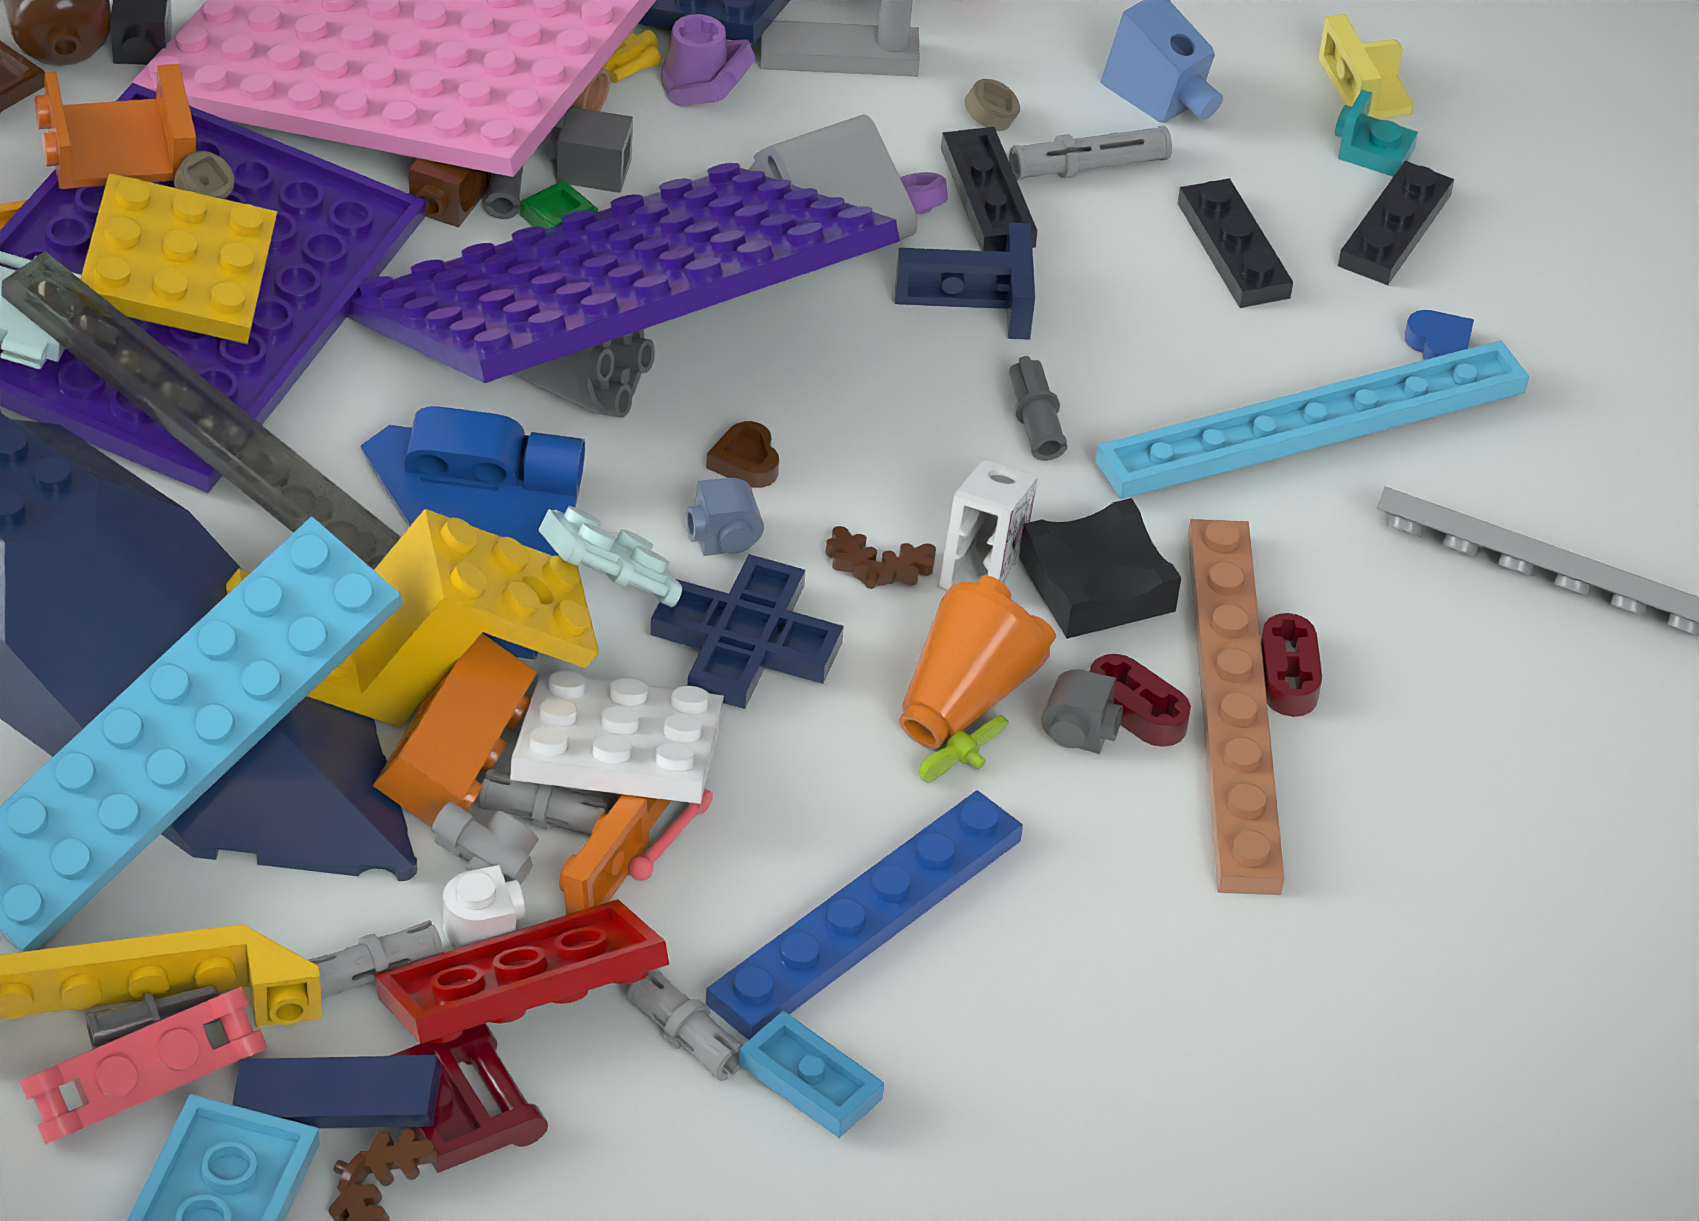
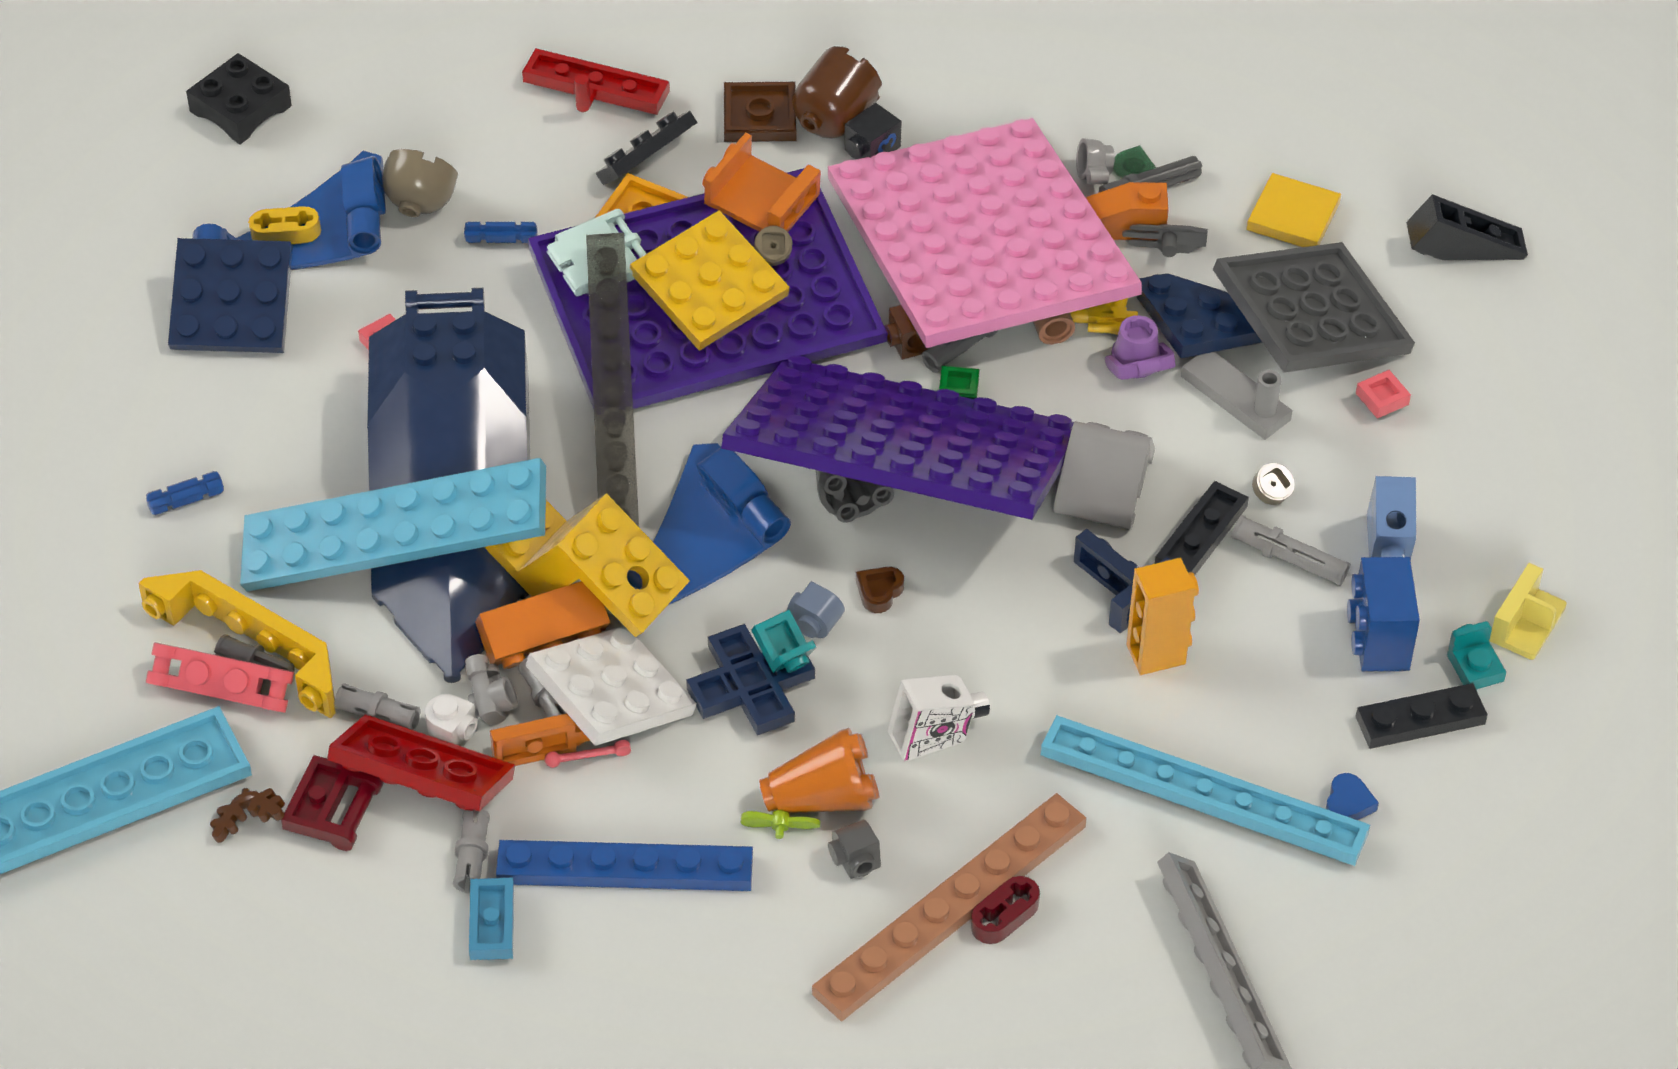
camera: 50 degrees right, 5 degrees up
(342, 1090) = (278, 755): dark blue tile -> none
(592, 149) = (1013, 362): dark grey brick -> none
(621, 557) = (716, 587): light aqua plate -> none
(757, 560) = (783, 642): none -> teal bracket
(853, 556) = (862, 682): reddish brown animal -> none
(925, 190) = (1162, 506): medium lavender tile -> none
(1037, 409) = (1058, 673): dark grey axle -> none
(1097, 270) = (1161, 615): none -> light orange brick
(1099, 570) = (965, 782): black brick -> none
(1150, 705) = (908, 865): dark red beam -> none
(1235, 243) = (1307, 660): black plate -> none
(1271, 140) = (1384, 614): none -> blue brick

